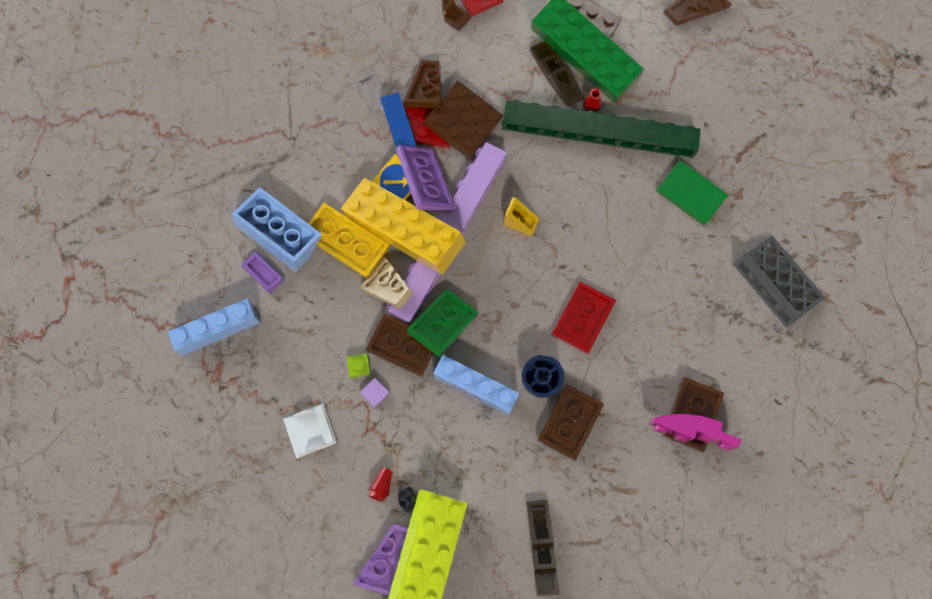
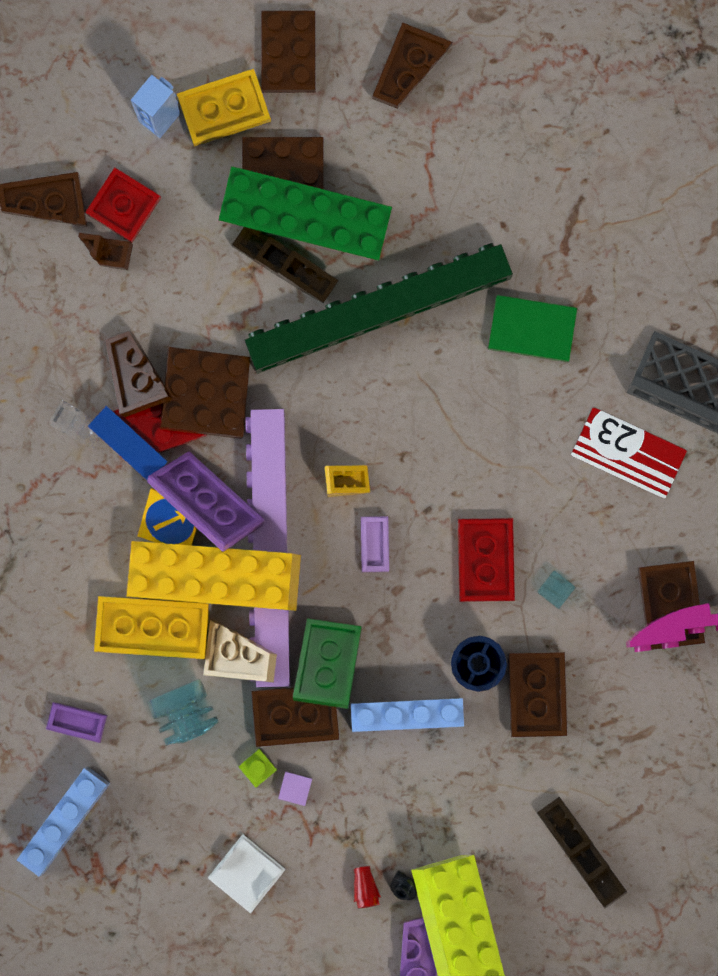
camera: 30 degrees left, 10 degrees up
(276, 229) = (63, 662): light blue slope -> none
(331, 299) = (183, 712): none -> clear light blue wheel
(516, 268) = (375, 544): none -> lavender tile
(593, 101) = (352, 284): red cone -> none
(619, 361) = (556, 589): none -> clear light blue tile
(715, 302) = (629, 452): none -> sticker

